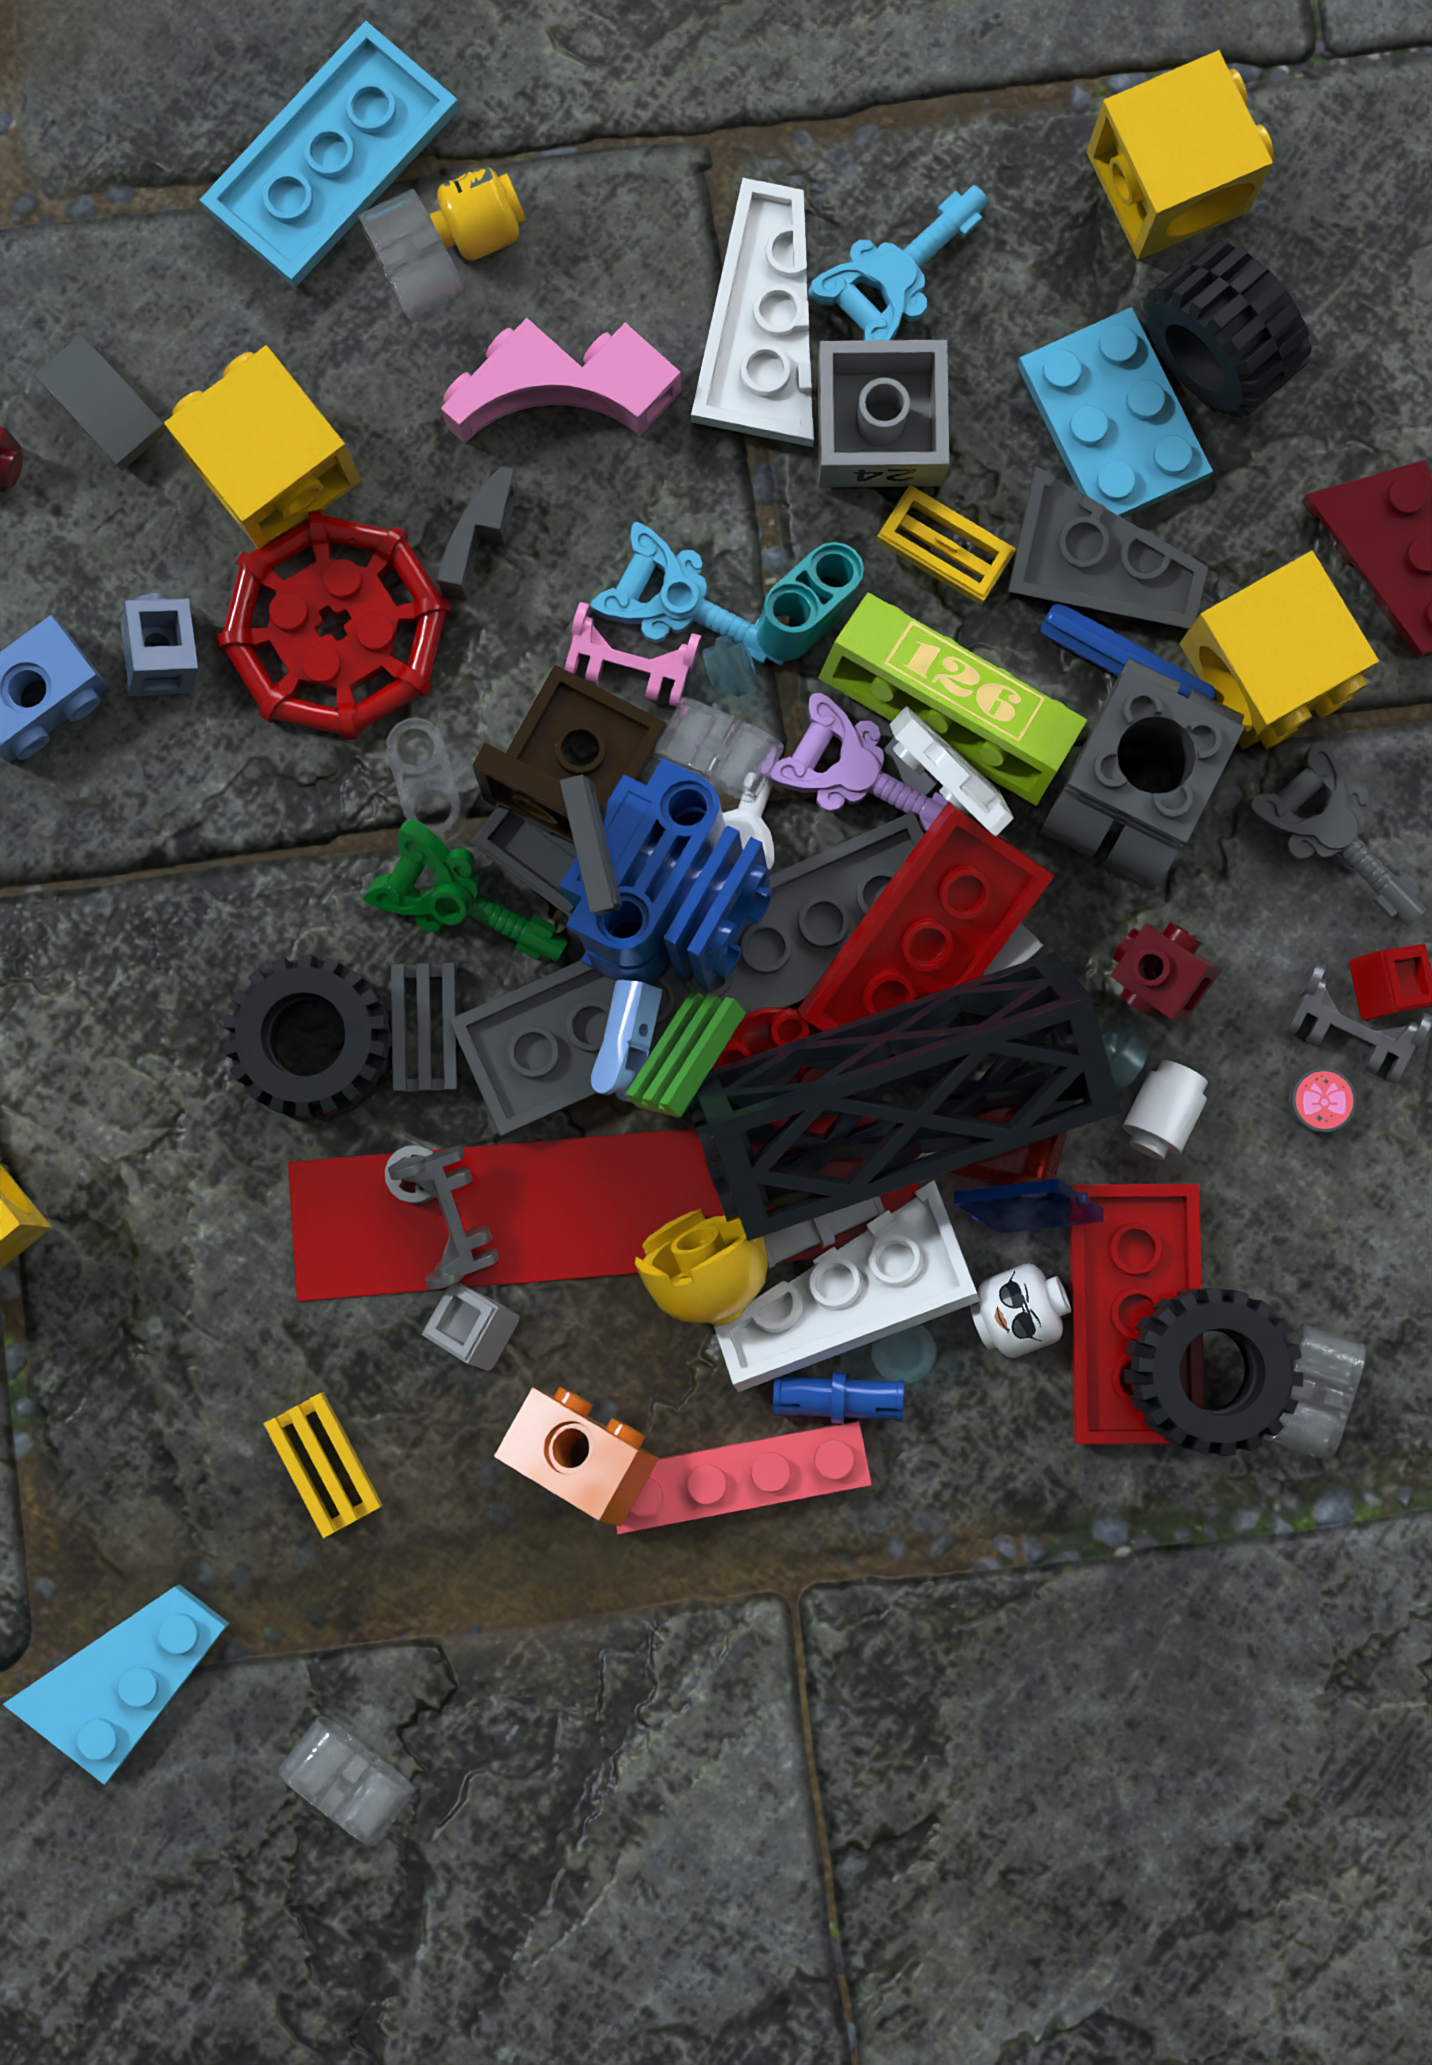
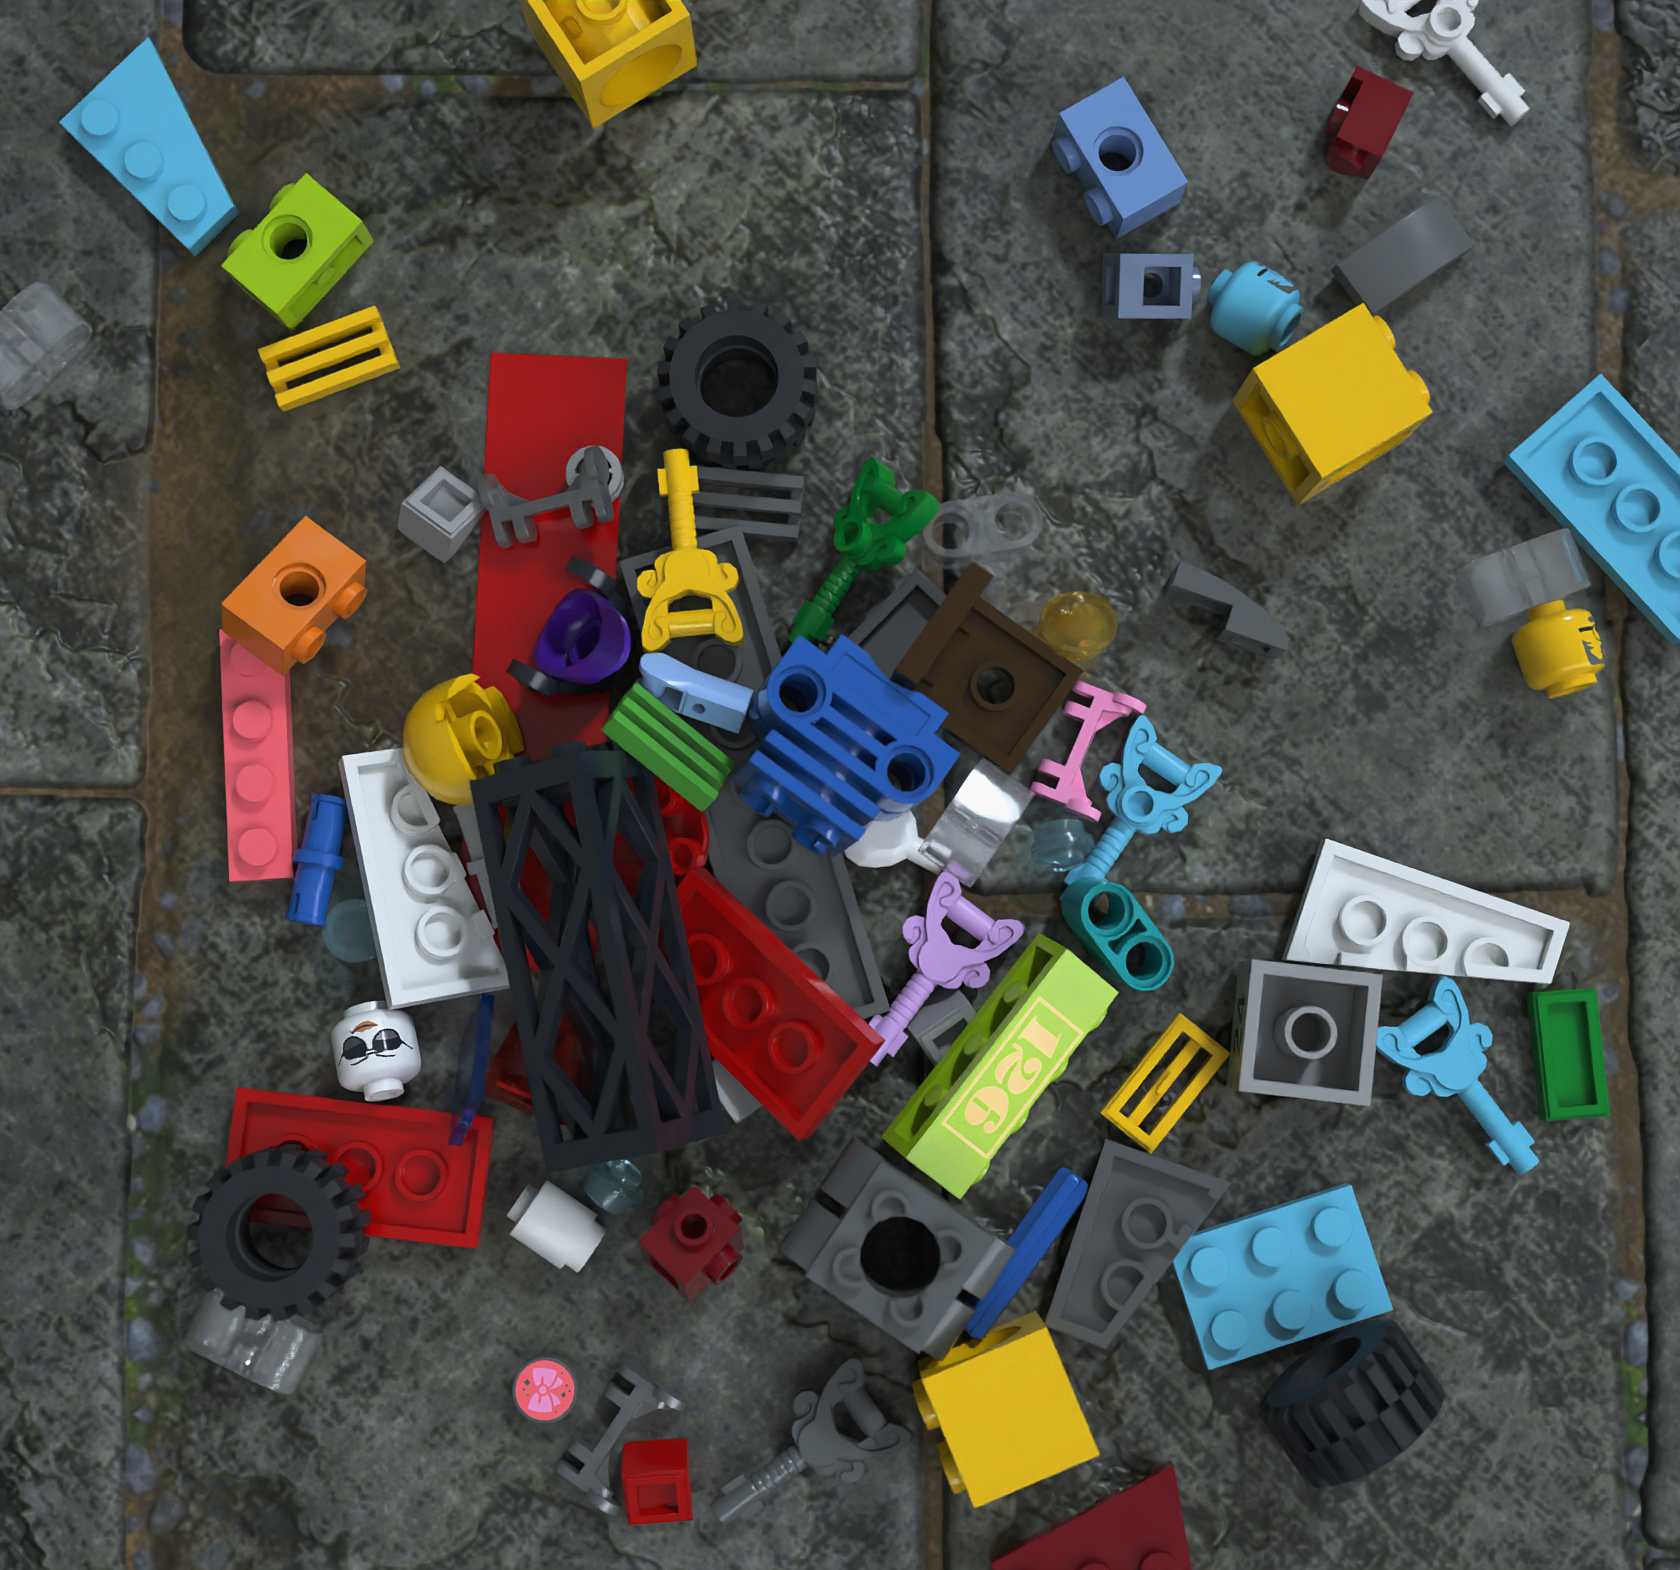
camera: 95 degrees right, 0 degrees up
(169, 539) = (1255, 308): none -> medium azure head
(255, 1513) = (296, 285): none -> lime brick
(298, 615) = (1165, 426): red plate -> none
(504, 1062) = (686, 570): none -> yellow piece
(508, 675) = (1078, 625): none -> clear yellow hat
(529, 370) = (1389, 680): bright pink arch -> none
(585, 1159) = (582, 640): none -> dark purple cap
(591, 845) = (869, 664): dark grey tile -> none
(866, 170) = (1568, 1054): none -> green tile
(962, 783) = (919, 1051): white wing -> none
(1180, 154) = (1548, 1382): yellow brick -> none

